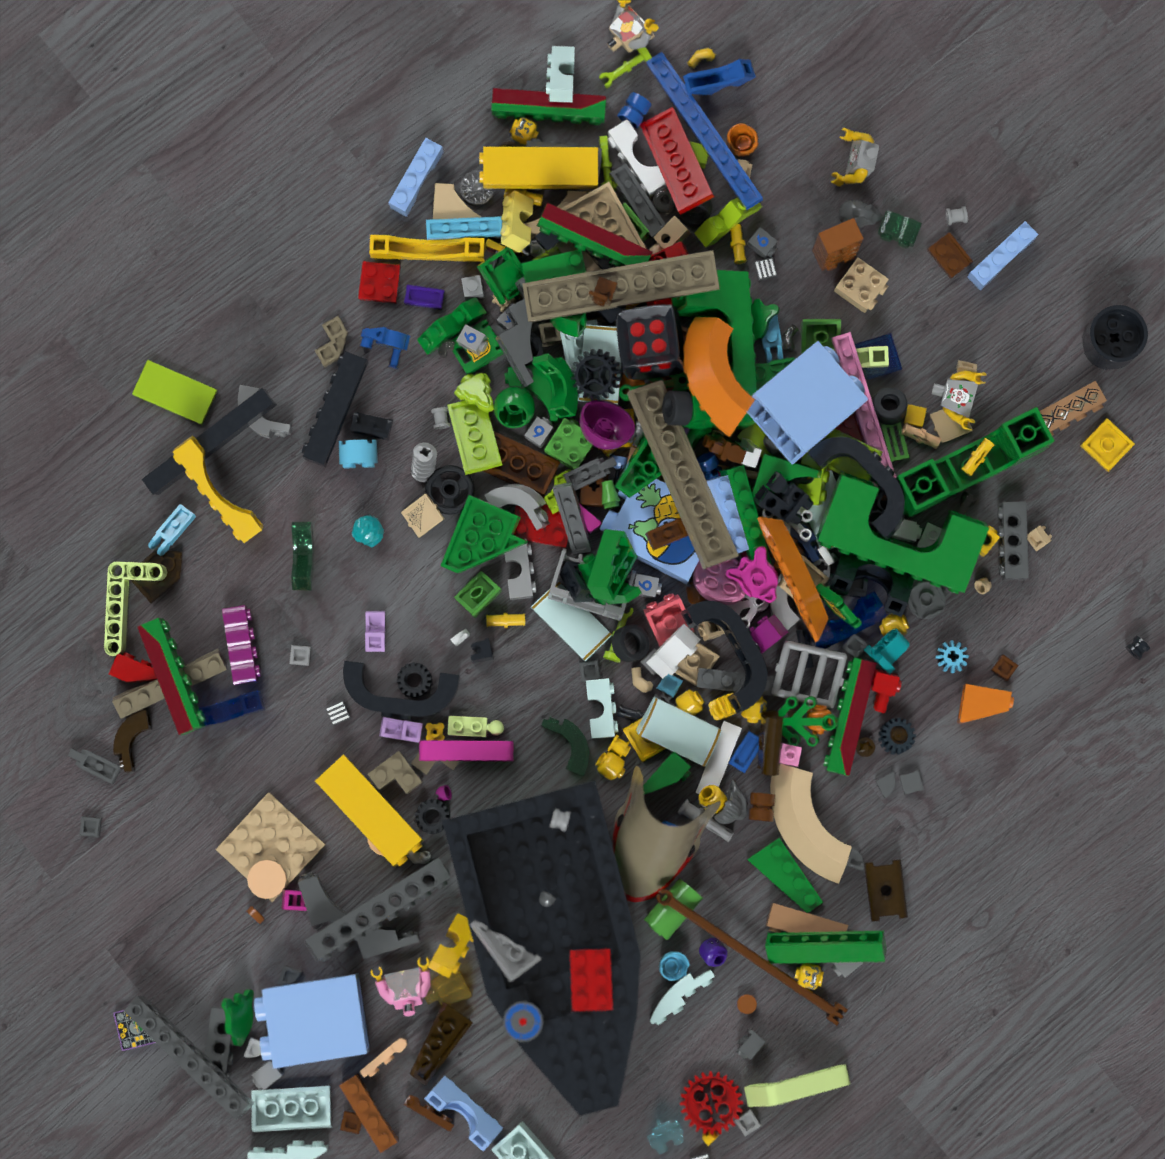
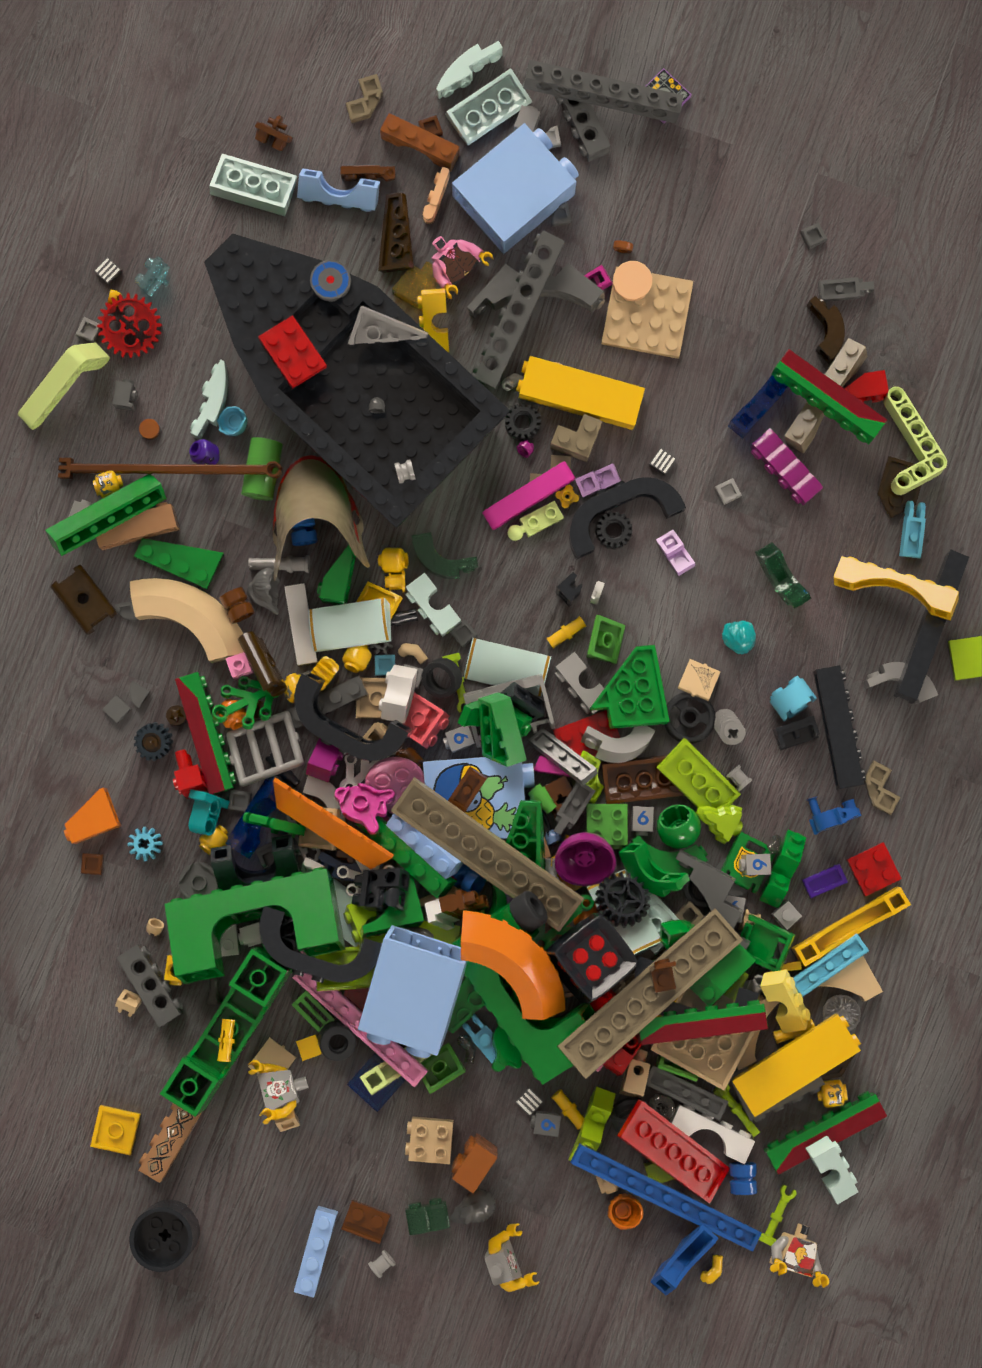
camera: 145 degrees right, 0 degrees up
(238, 1016) = (582, 153): green tile -> none
(420, 167) = (904, 976): light blue arch -> none
(710, 795) = (285, 584): yellow head -> none
(745, 752) = (281, 646): blue tile -> none
(921, 436) = (292, 1031): light nougat pin -> none

